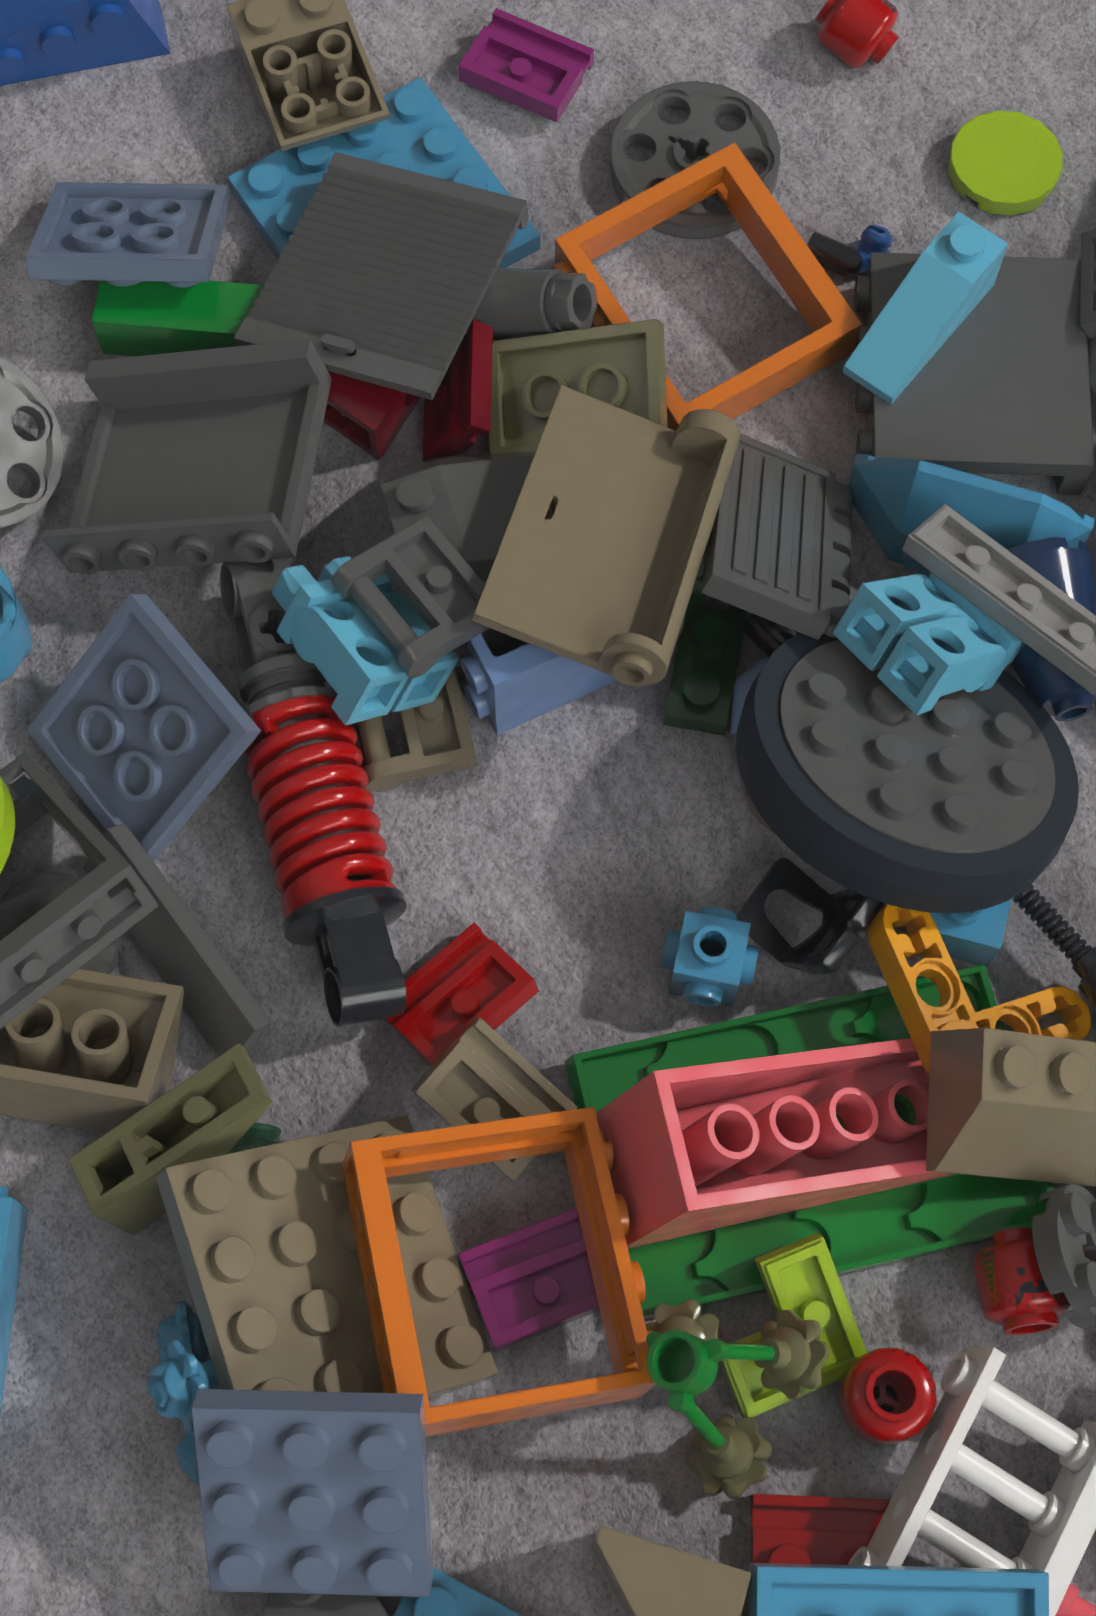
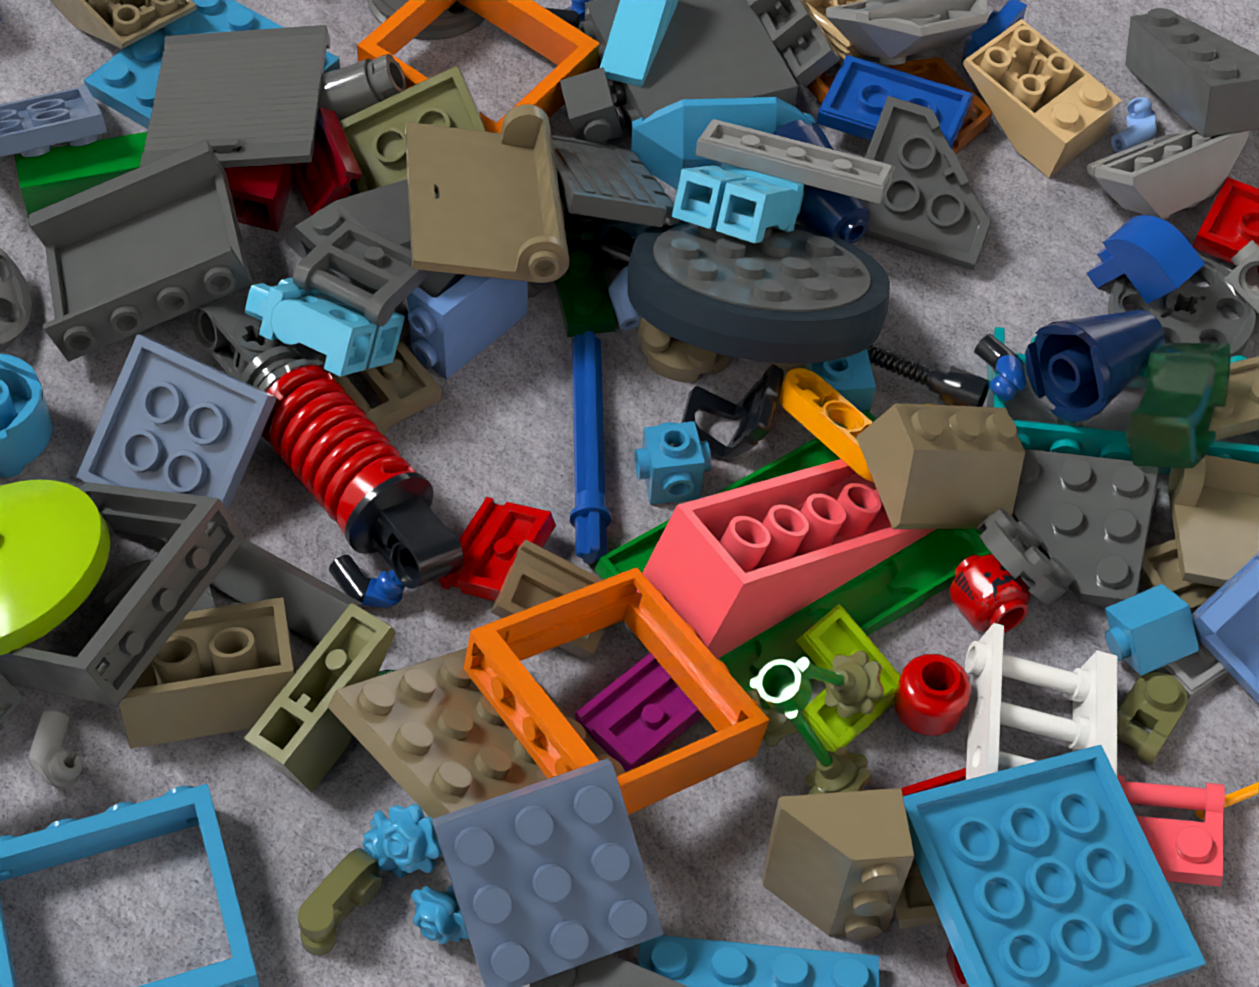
camera: 25 degrees left, 15 degrees down
(77, 1403) = (348, 885): none -> olive plate
(287, 992) = (372, 592): none -> arm
(621, 896) = (590, 512): none -> blue axle
(817, 412) = (591, 106): none -> dark grey brick

